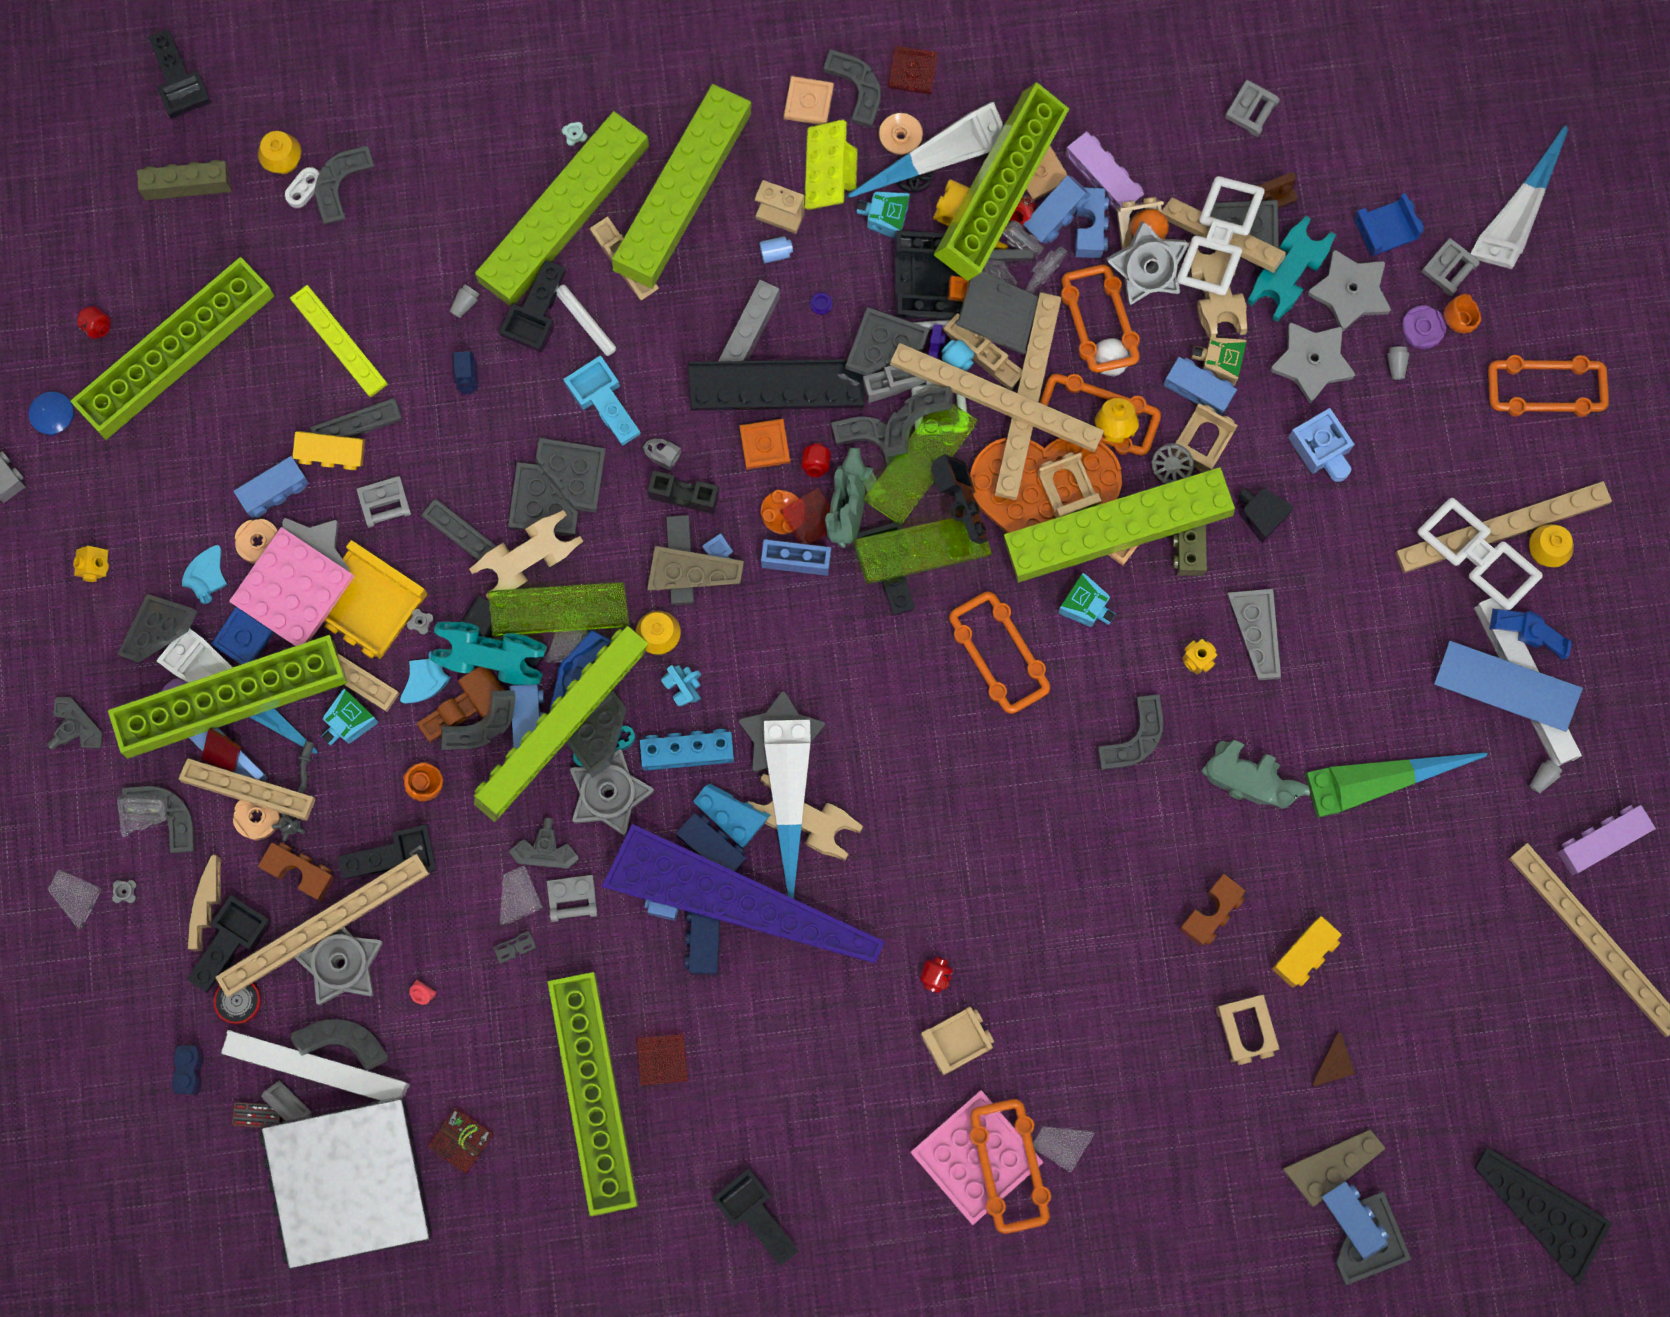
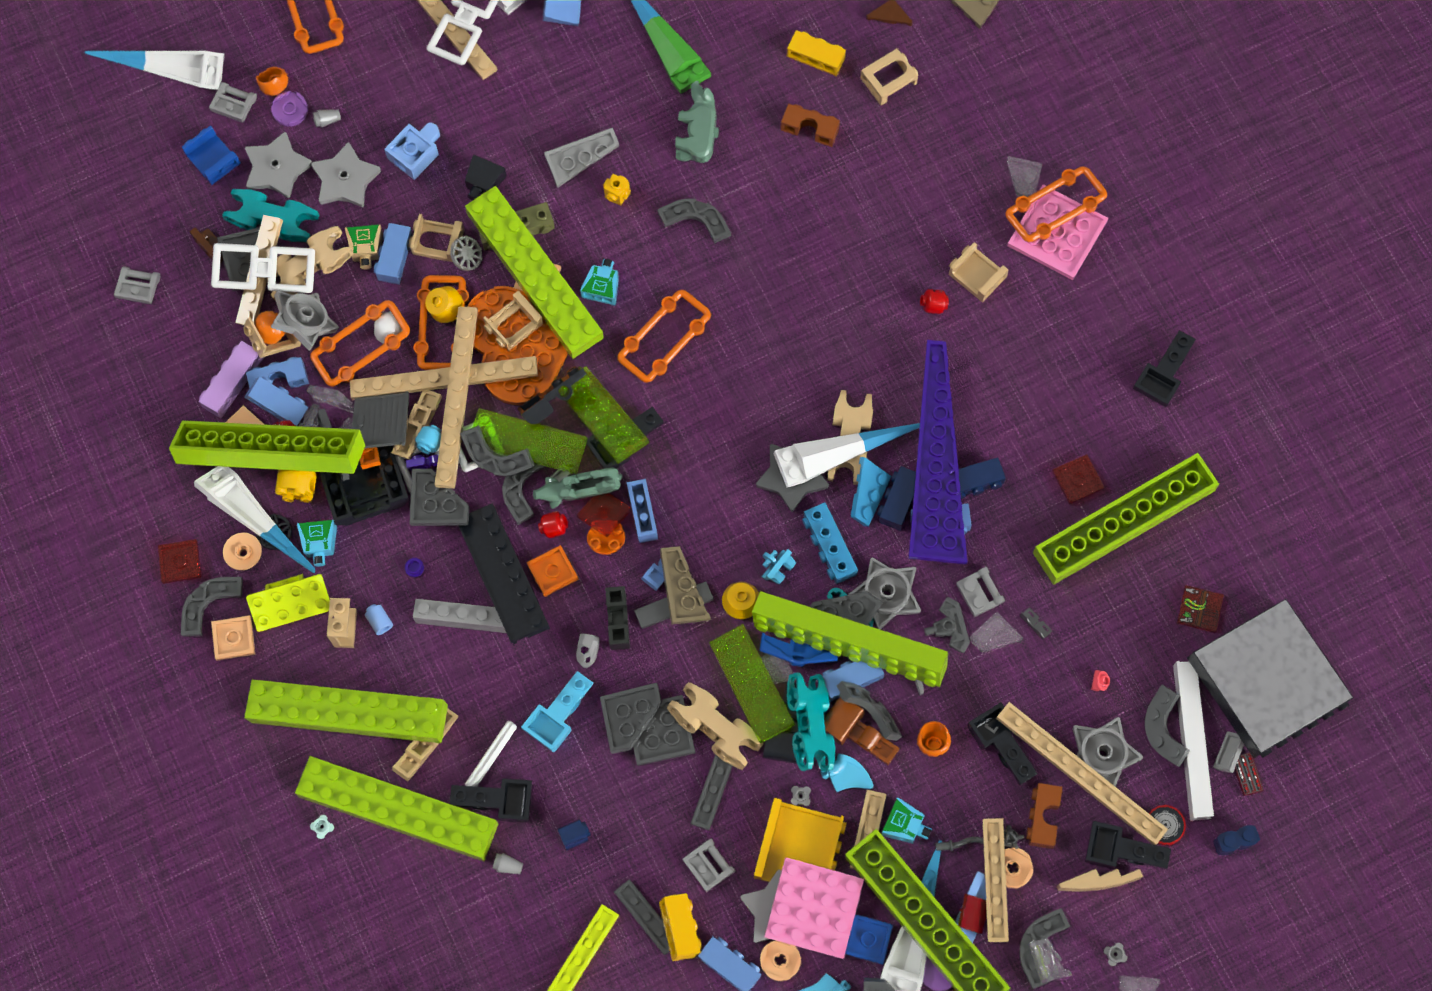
camera: 105 degrees left, 5 degrees down
(889, 383) = (468, 490): light grey slope -> none

